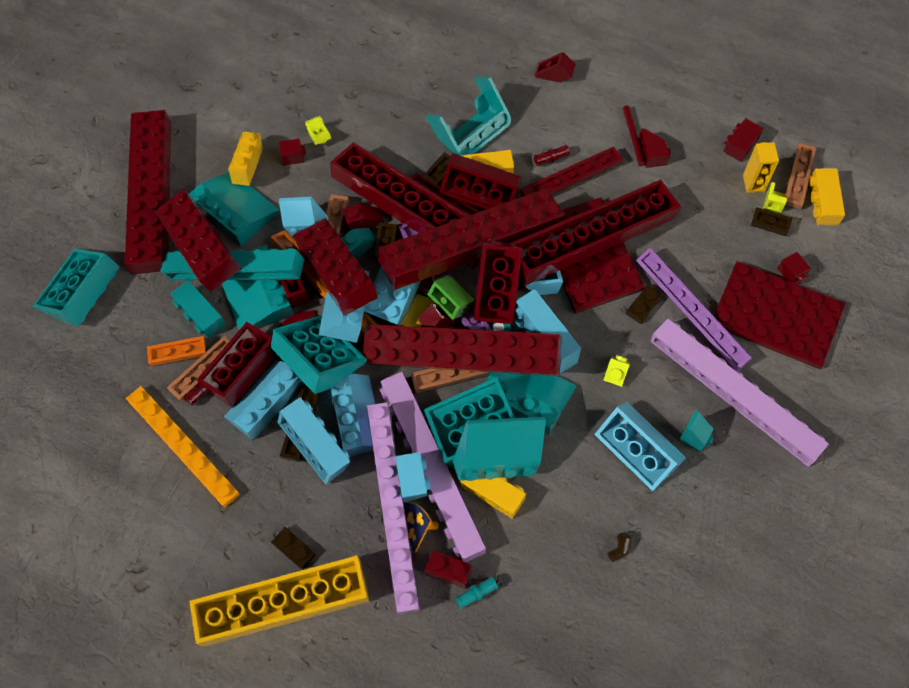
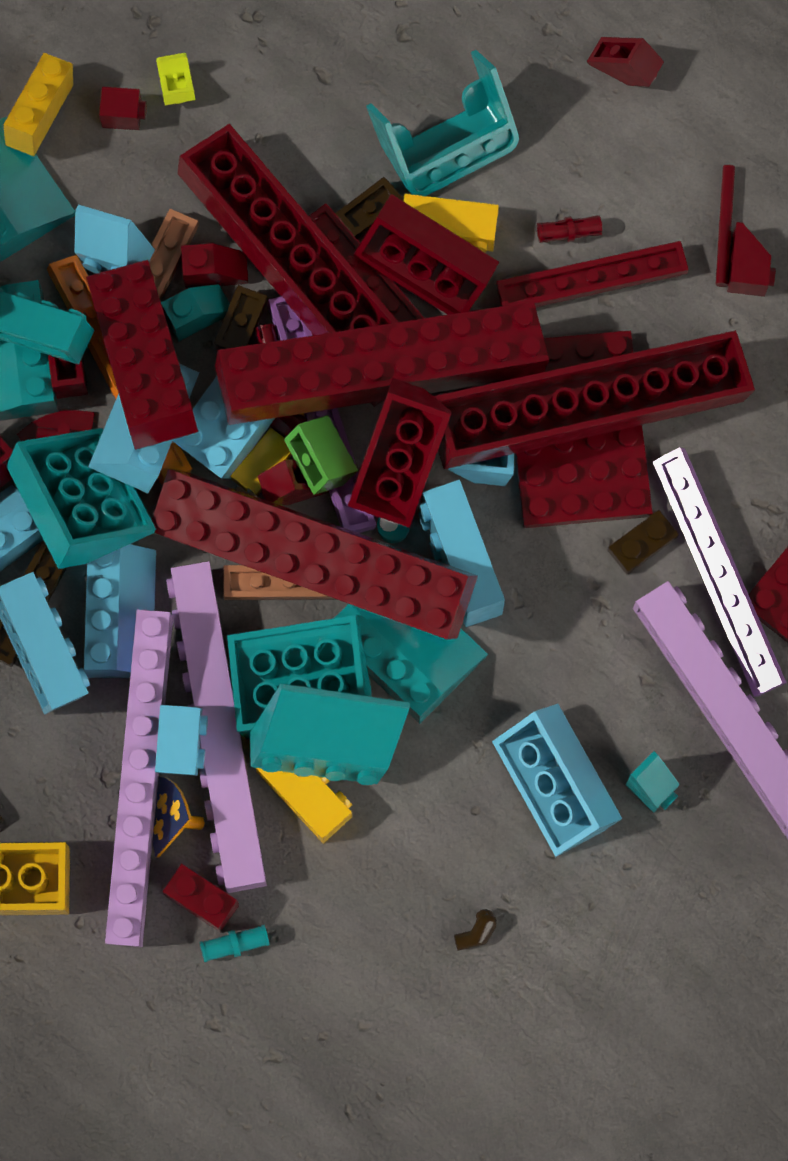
camera: 10 degrees right, 10 degrees up
(617, 370) = (560, 645): neon yellow bracket -> none

